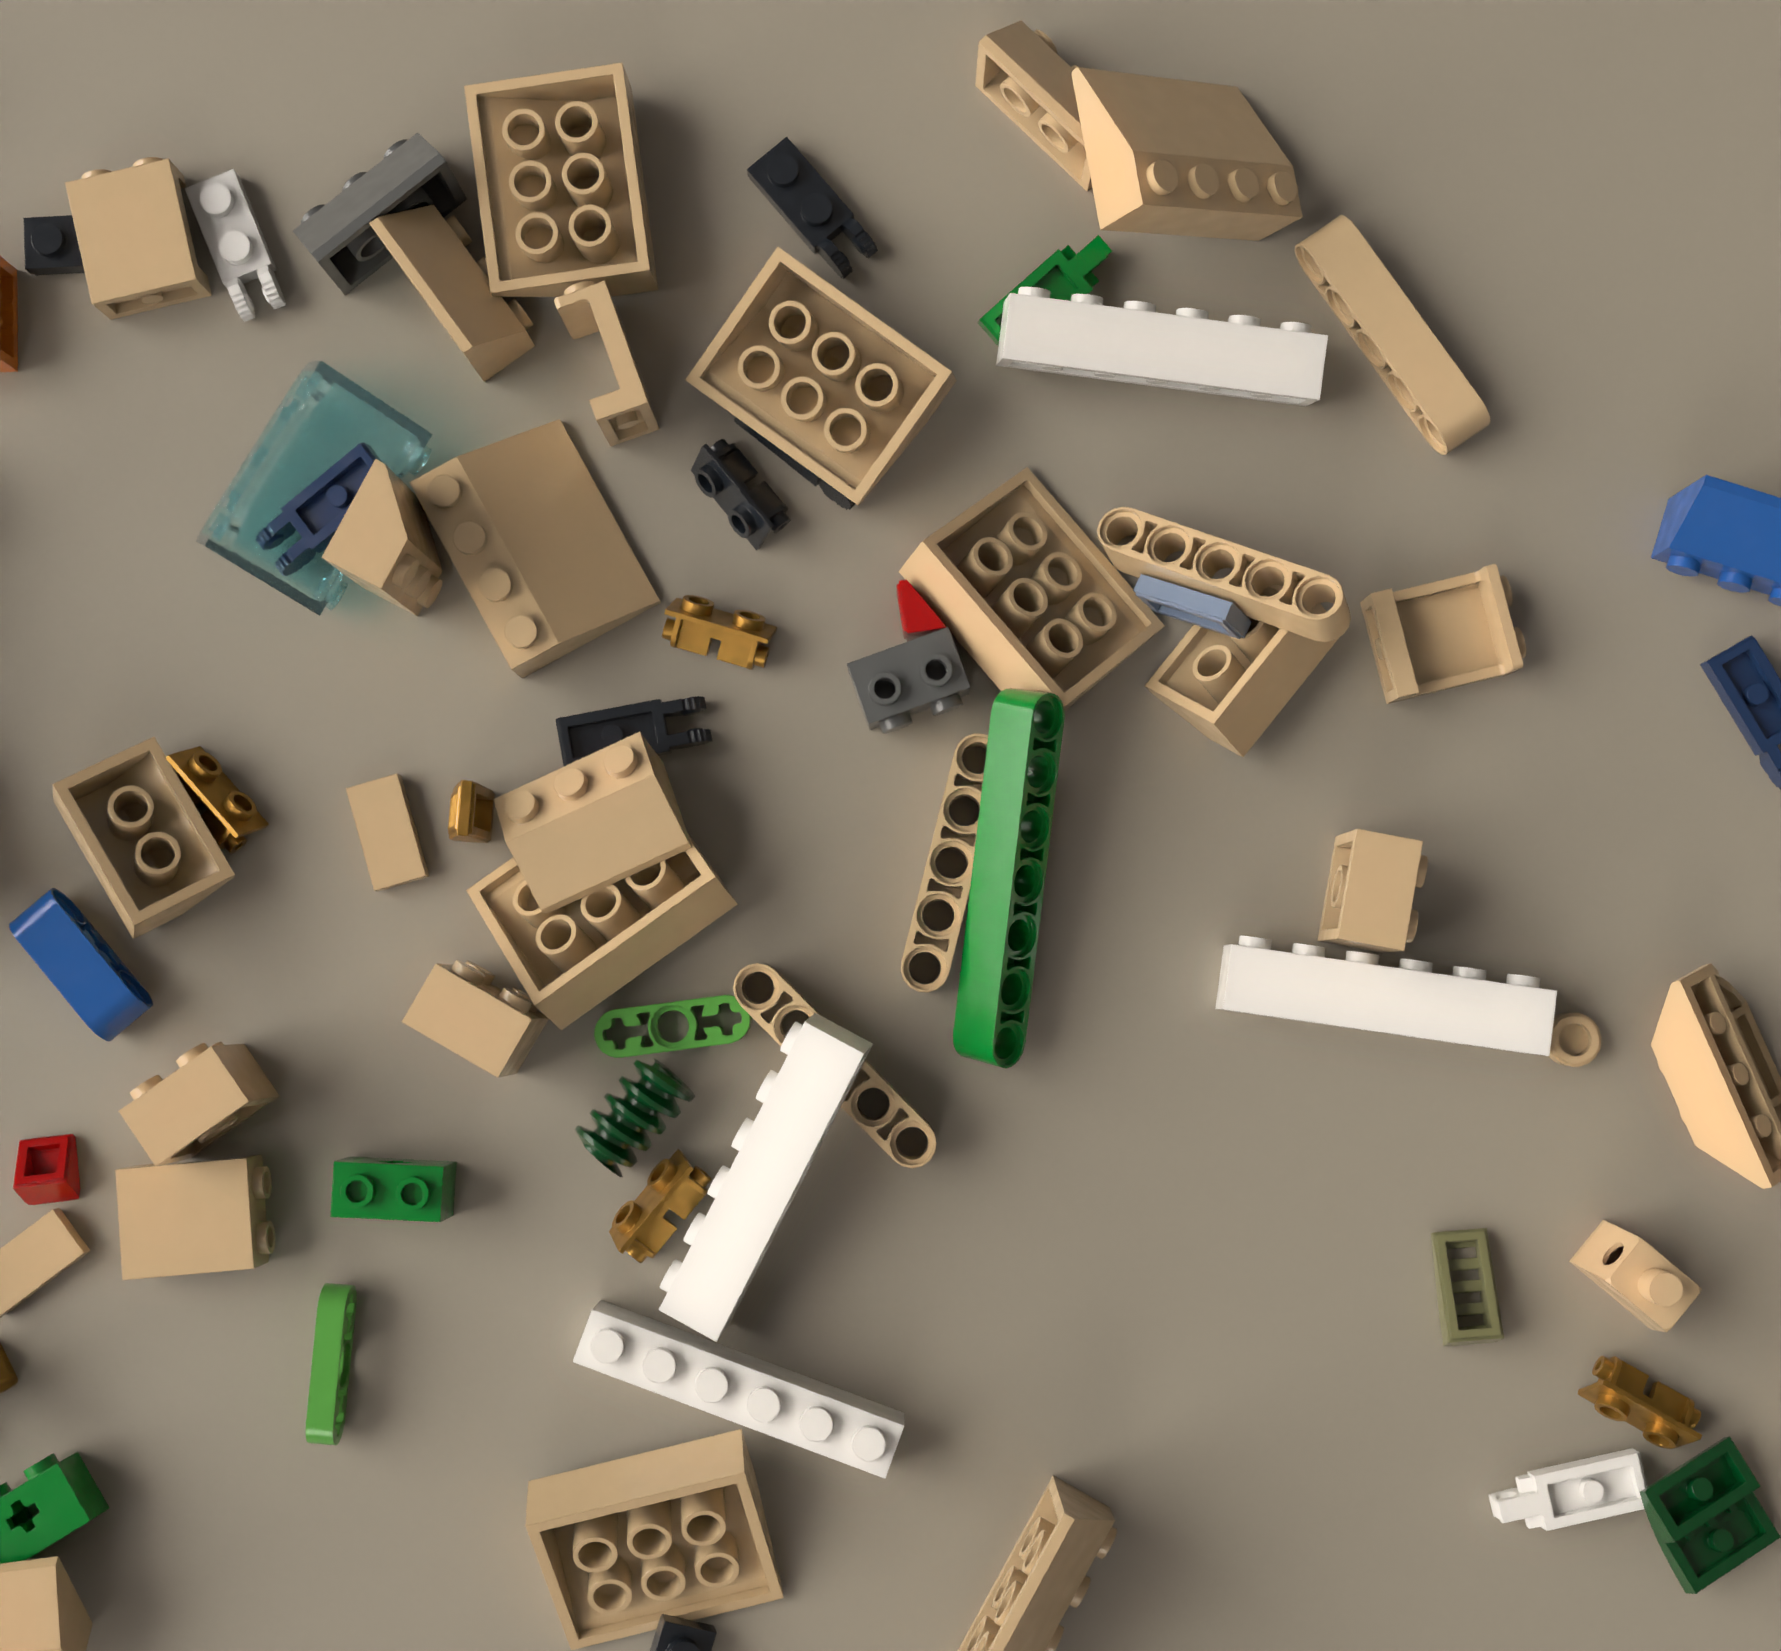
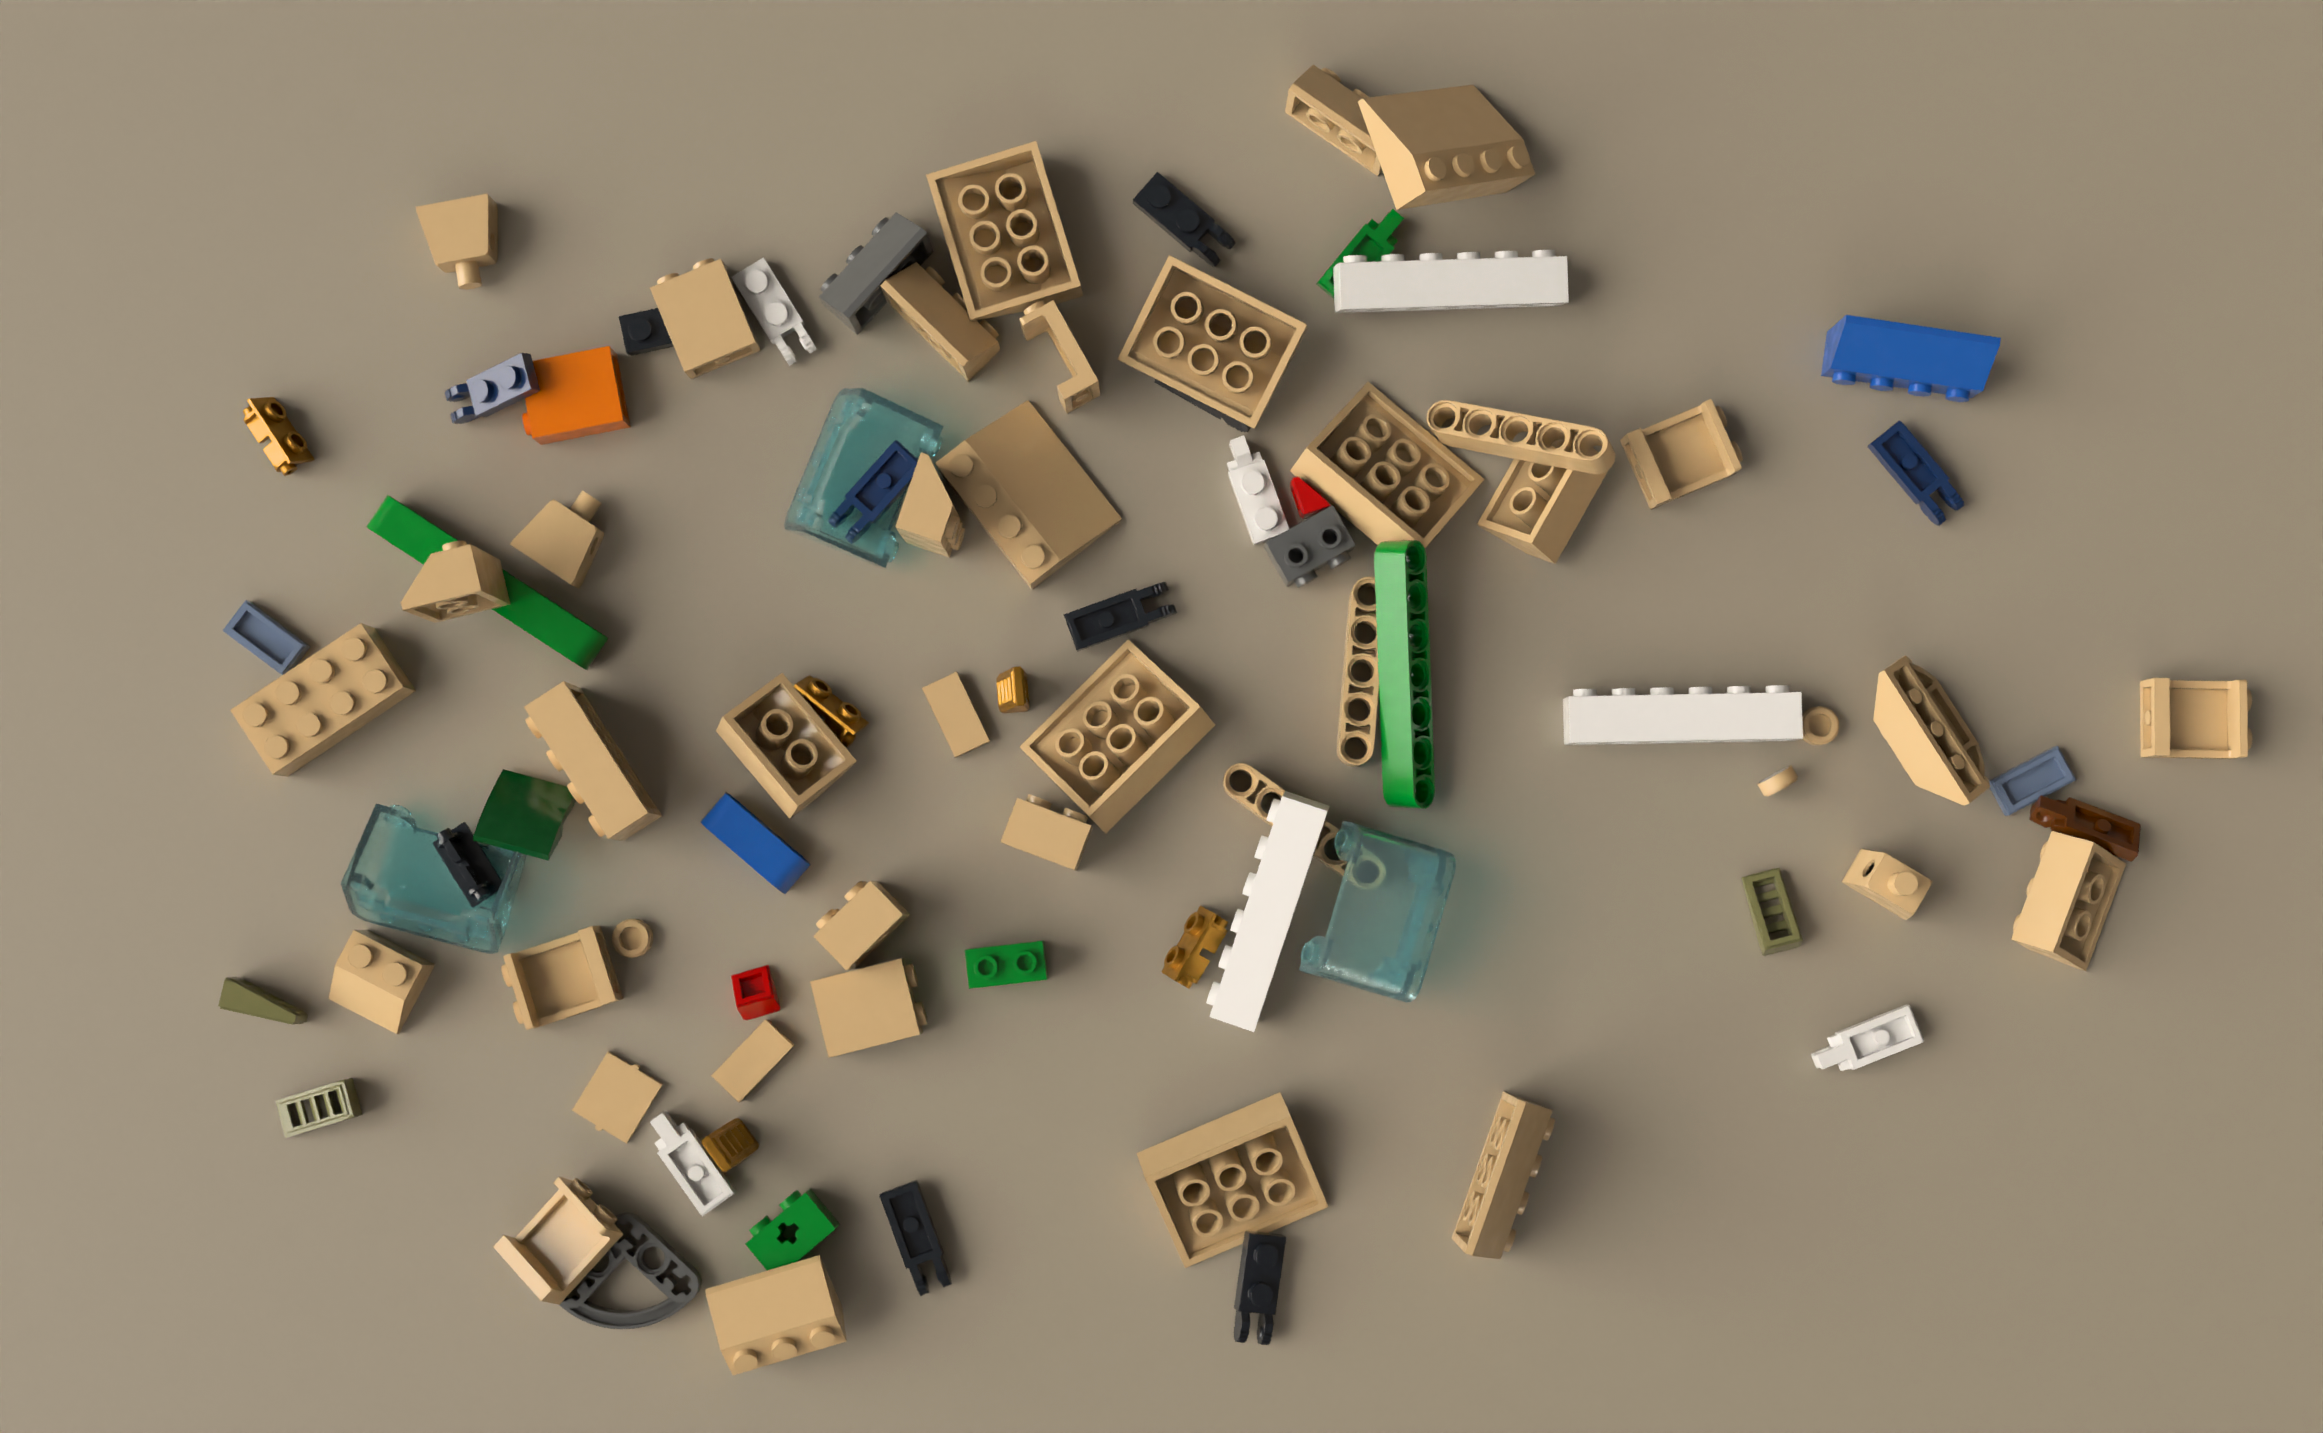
camera: 15 degrees left, 0 degrees up
(205, 1543) = (915, 1233): none -> black hinge
(331, 1364) = (982, 1094): bright green beam -> none
(592, 822) = (1105, 683): tan slope -> none
(634, 1115) = (1167, 884): dark green piece -> none
(635, 1045) = (1213, 819): bright green beam -> none
(700, 622) = (1154, 529): pearl gold hinge -> none
(722, 476) = (1177, 445): black hinge -> none
(740, 1388) = (1275, 1063): white brick -> none
(847, 594) = (1255, 493): none -> white hinge
(921, 1207) = (1382, 913): none -> clear light blue windscreen
(1192, 606) = (1502, 463): sand blue tile -> none
(1372, 891) = (1661, 643): tan brick -> none
(1392, 335) = (1612, 246): tan beam -> none
(1503, 1108) = (1778, 781): none -> tan tile
(1663, 1417) = (1923, 979): pearl gold hinge -> none
(1708, 1516) = (1964, 1041): dark green slope -> none

